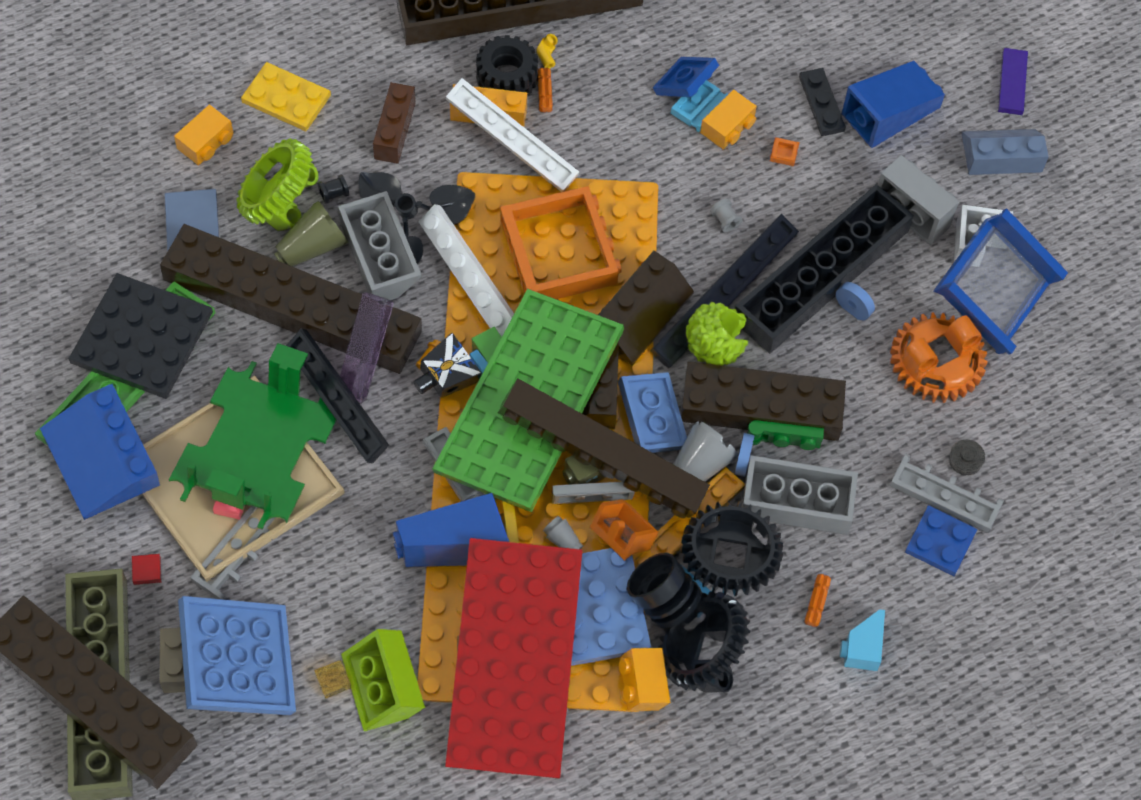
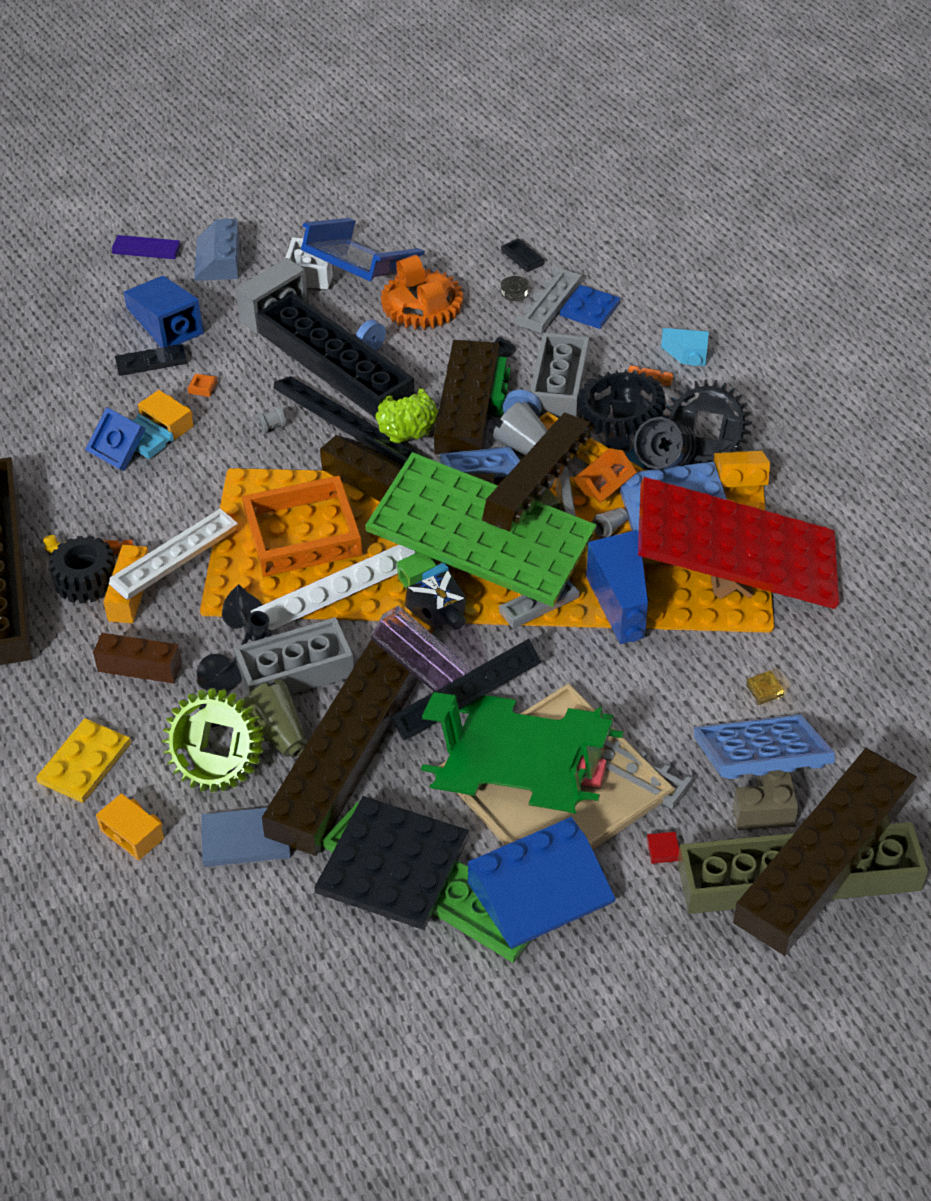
camera: 85 degrees left, 15 degrees down
(382, 679) = (762, 647): lime slope -> none
(858, 443) = (505, 347): none -> black tile
(1034, 468) = (522, 255): none -> black tile

